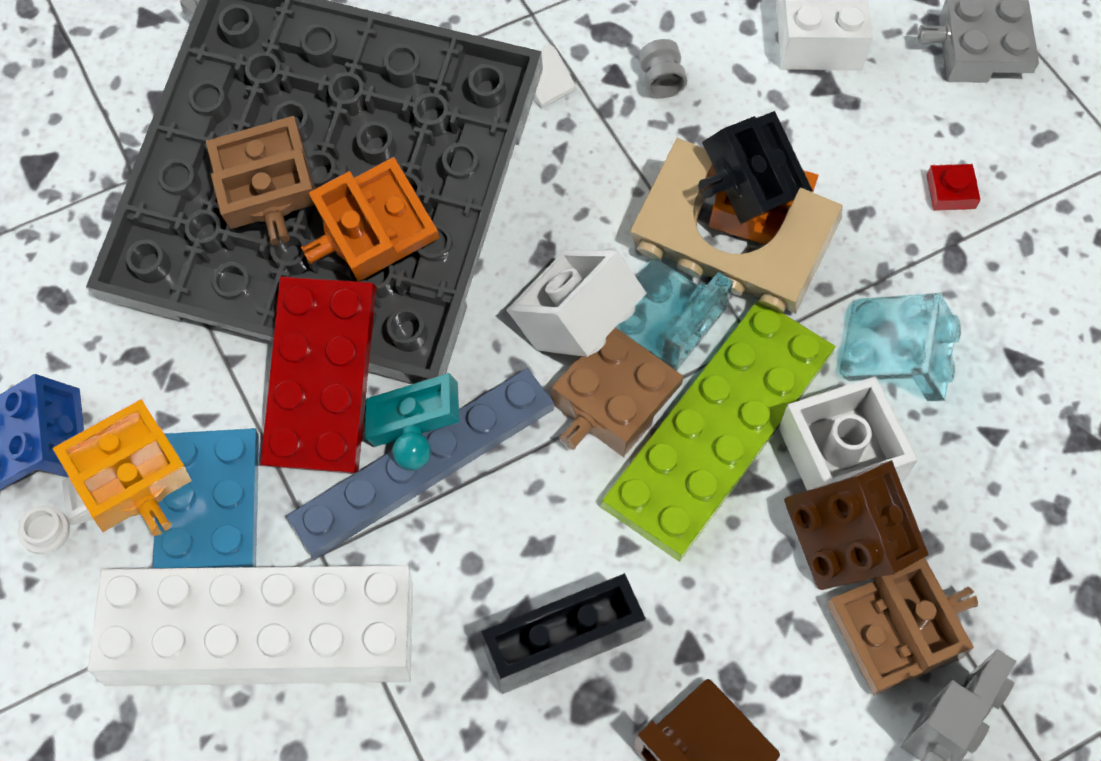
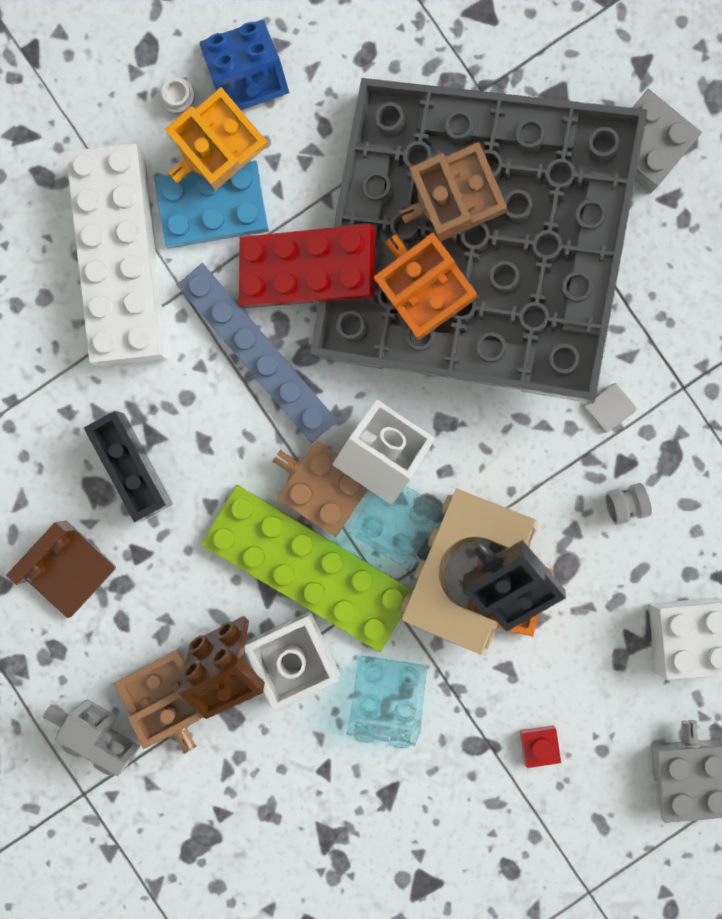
camera: 85 degrees right, 25 degrees up
(408, 413) = (285, 338): teal plate -> none

